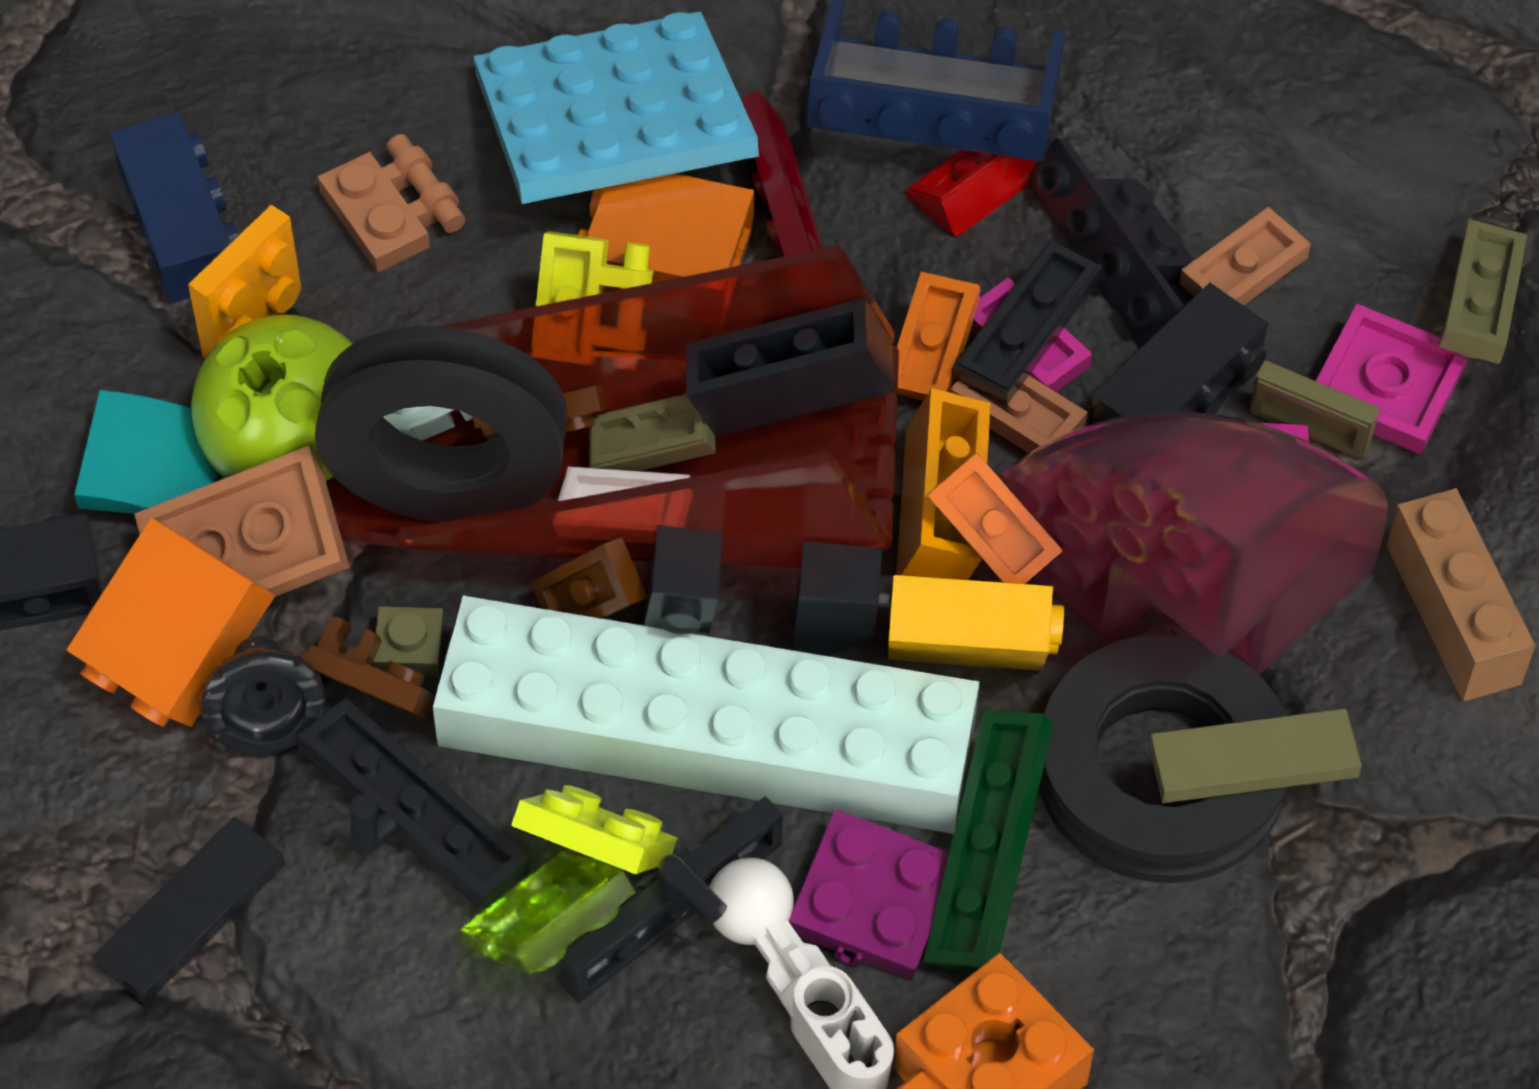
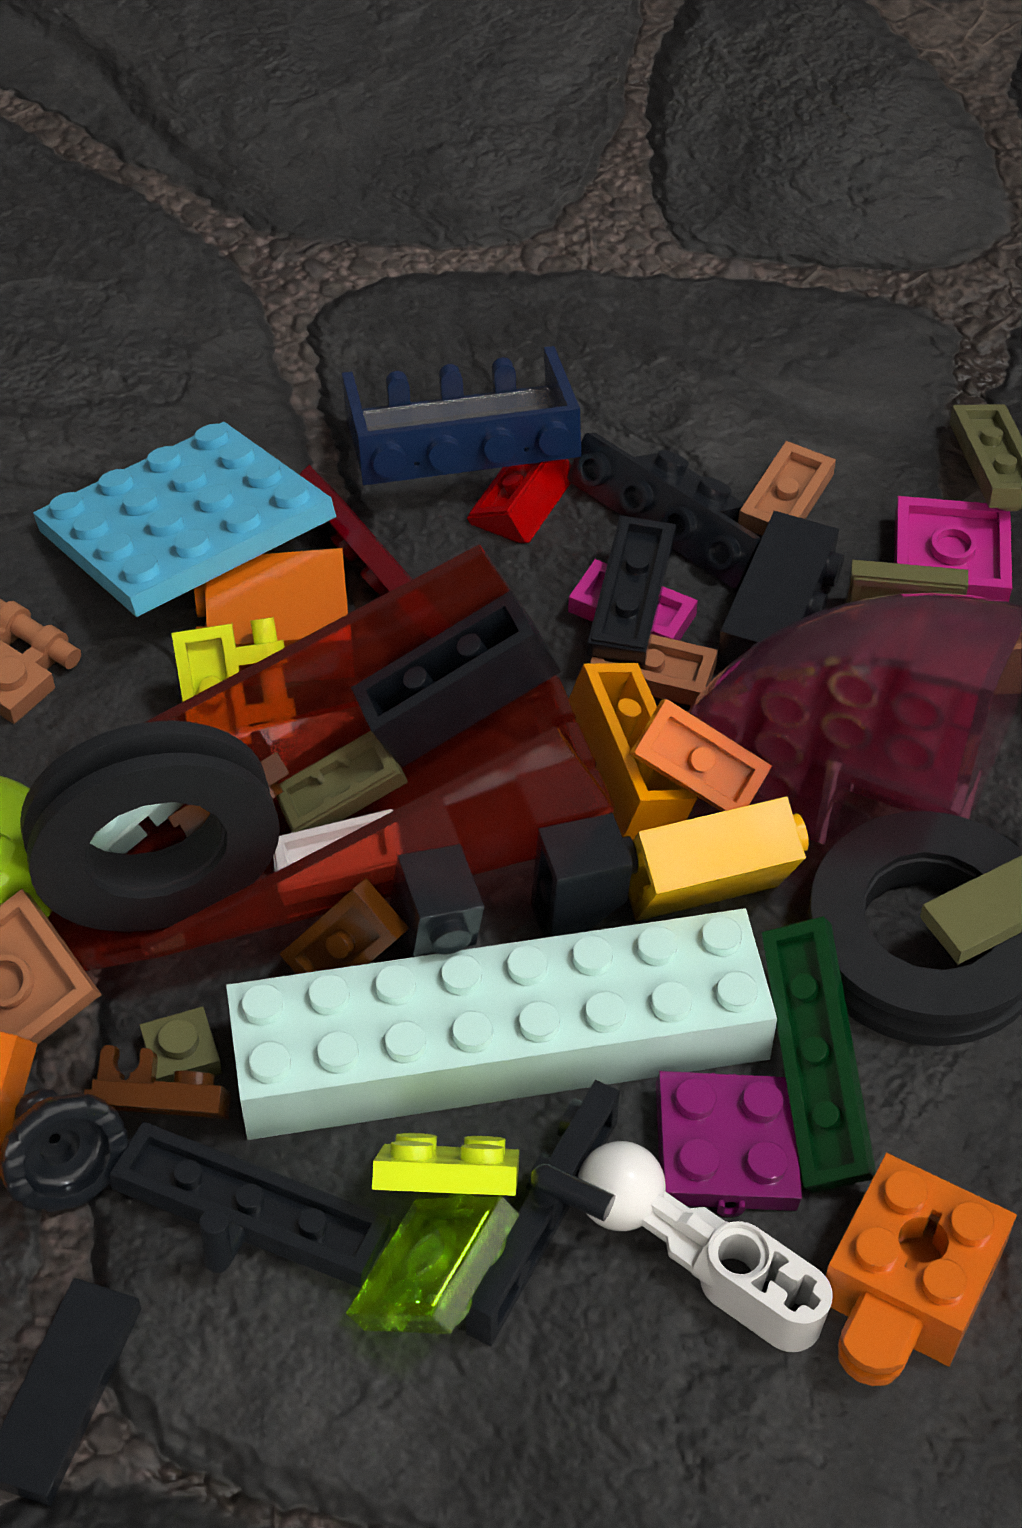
camera: 20 degrees left, 5 degrees down
(935, 334) = (557, 610): orange plate -> none

